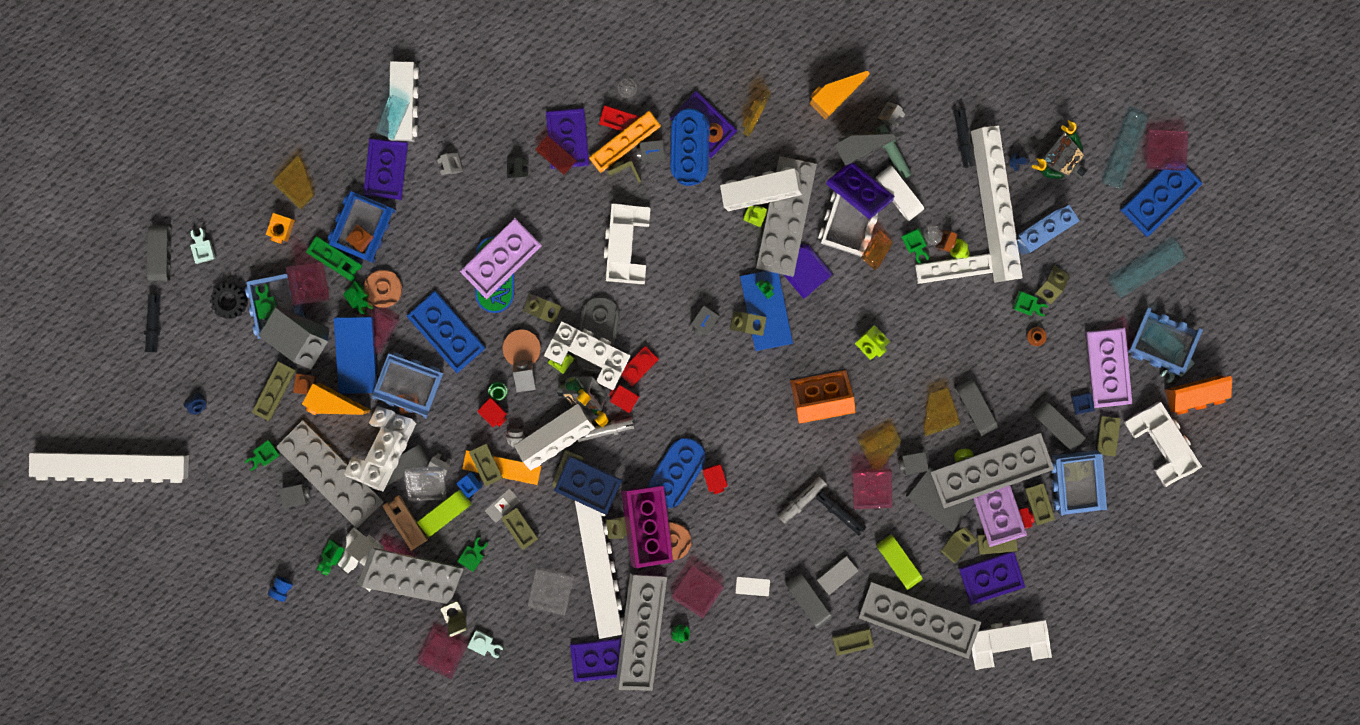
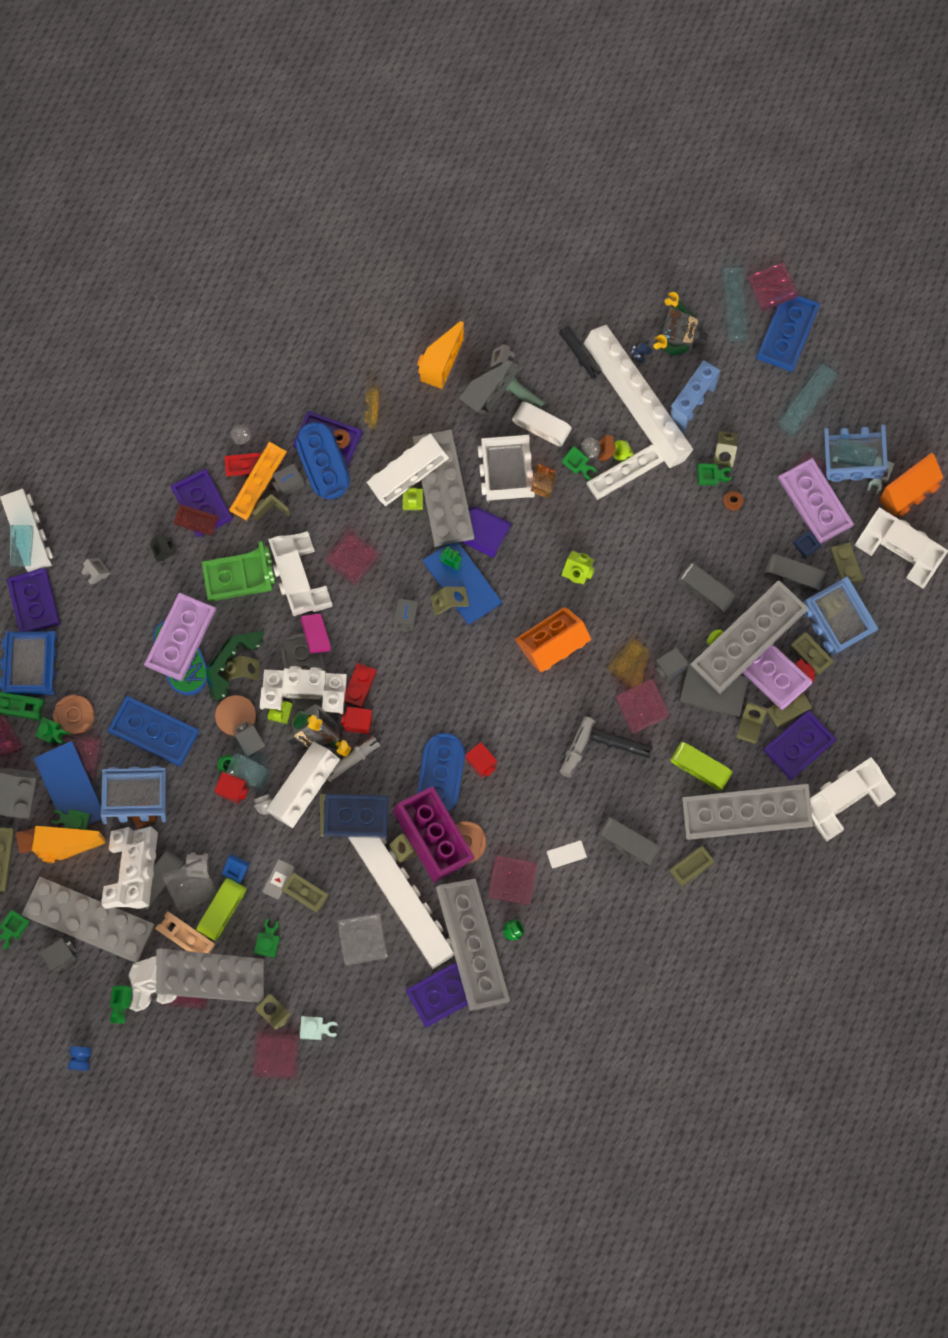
camera: 20 degrees left, 15 degrees down
(349, 386) = (74, 819): none -> green plate
(359, 238) = (31, 671): dark orange plate -> none
(486, 464) = (244, 840): olive plate -> none
(509, 469) = (262, 840): light orange tile -> none
(512, 404) = (248, 771): none -> clear light blue slope
(560, 287) = (216, 683): none -> dark green slope
(573, 222) = (239, 574): none -> bright green bracket
(619, 304) = (315, 633): none -> dark pink tile
(679, 247) = (352, 558): none -> clear pink plate
(837, 575) = (646, 806): light grey tile -> none
(860, 190) = (502, 432): dark purple tile -> none
(940, 412) = (674, 607): clear yellow wing -> none

